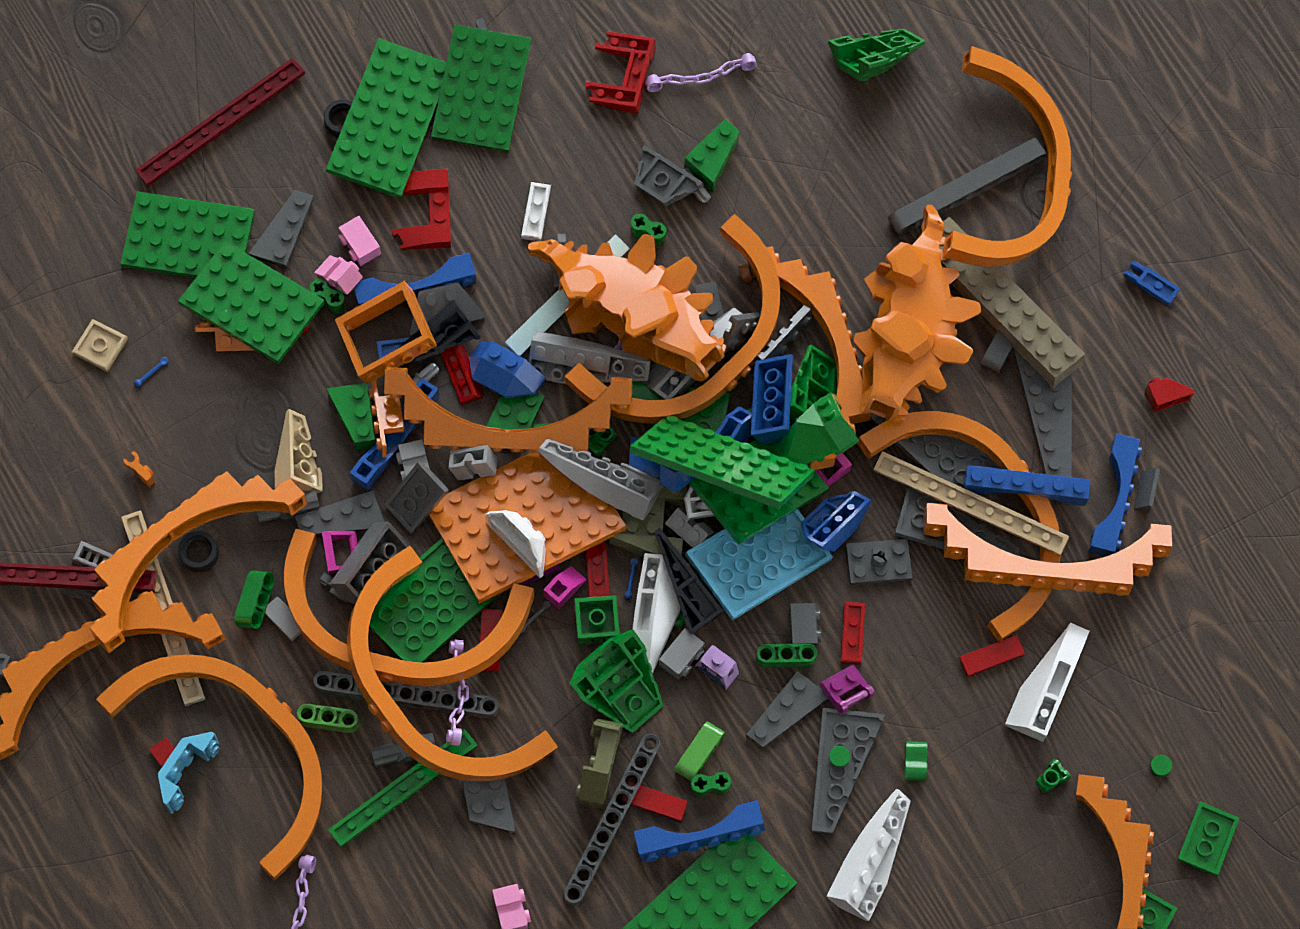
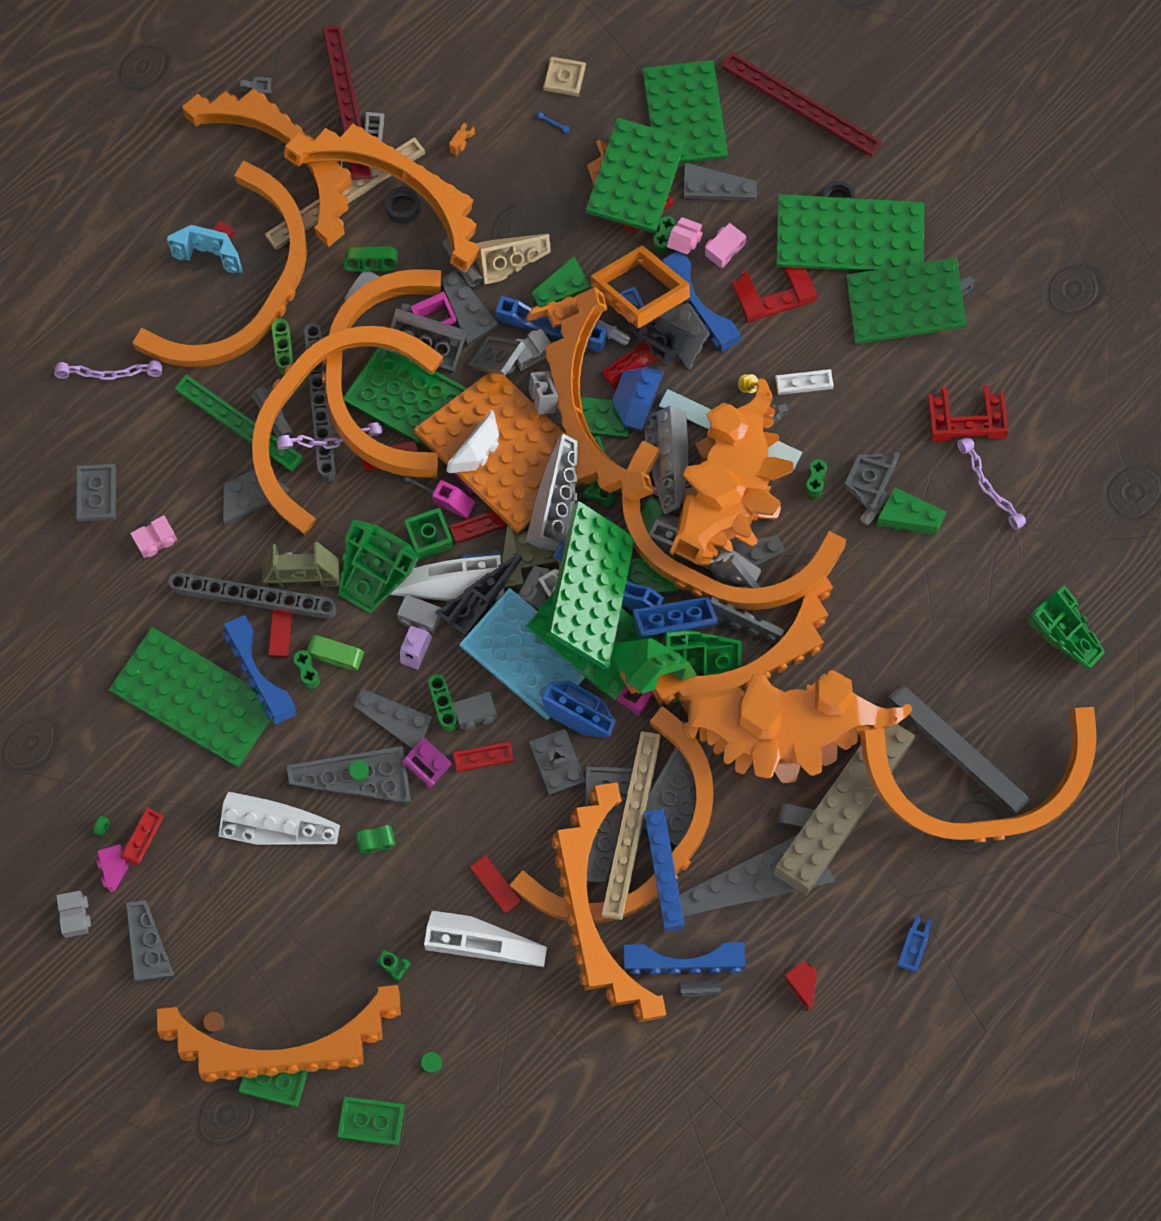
camera: 80 degrees right, 0 degrees up
(523, 263) = (747, 383): none -> yellow wheel

